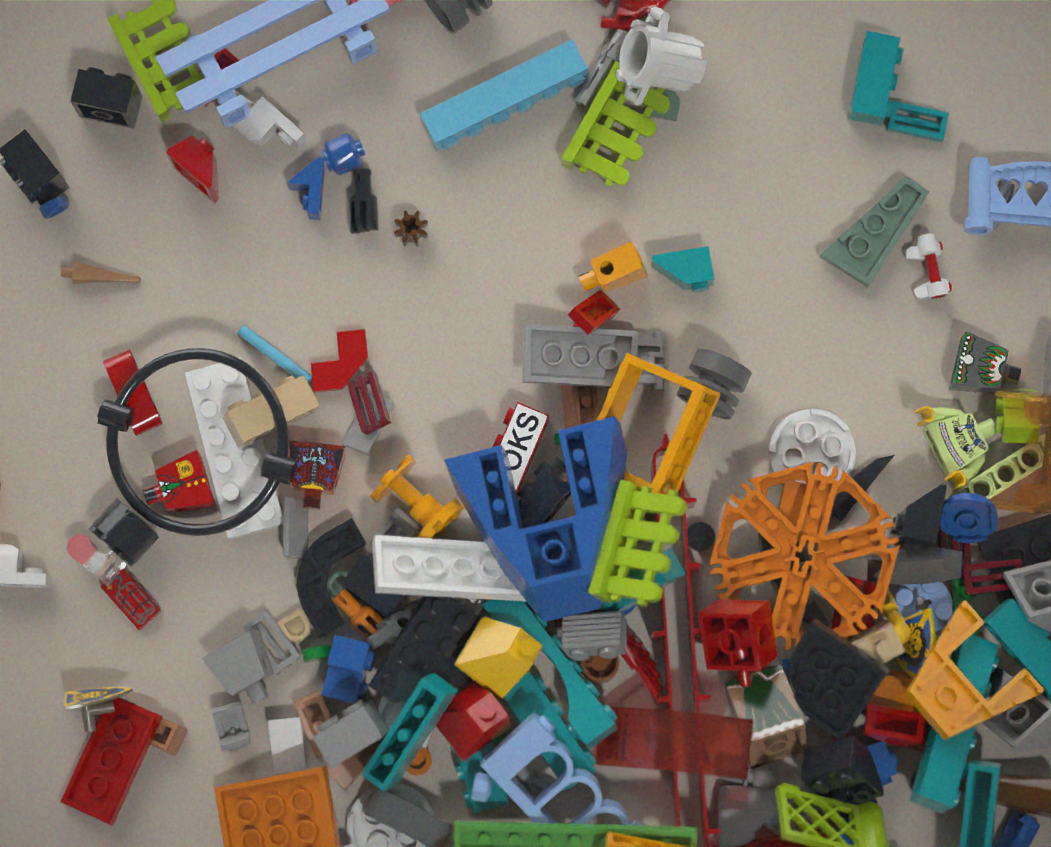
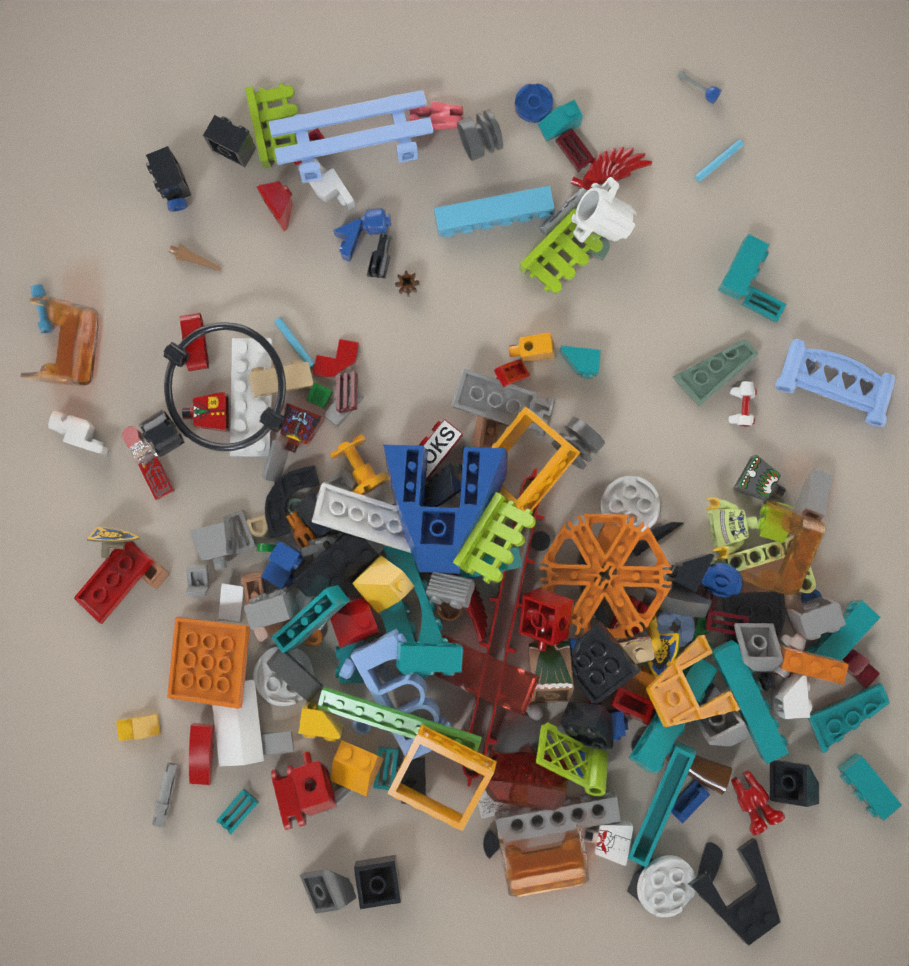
camera: 15 degrees right, 5 degrees up
(330, 419) = (319, 395): none -> green tile
(592, 735) = (429, 658): none -> teal brick

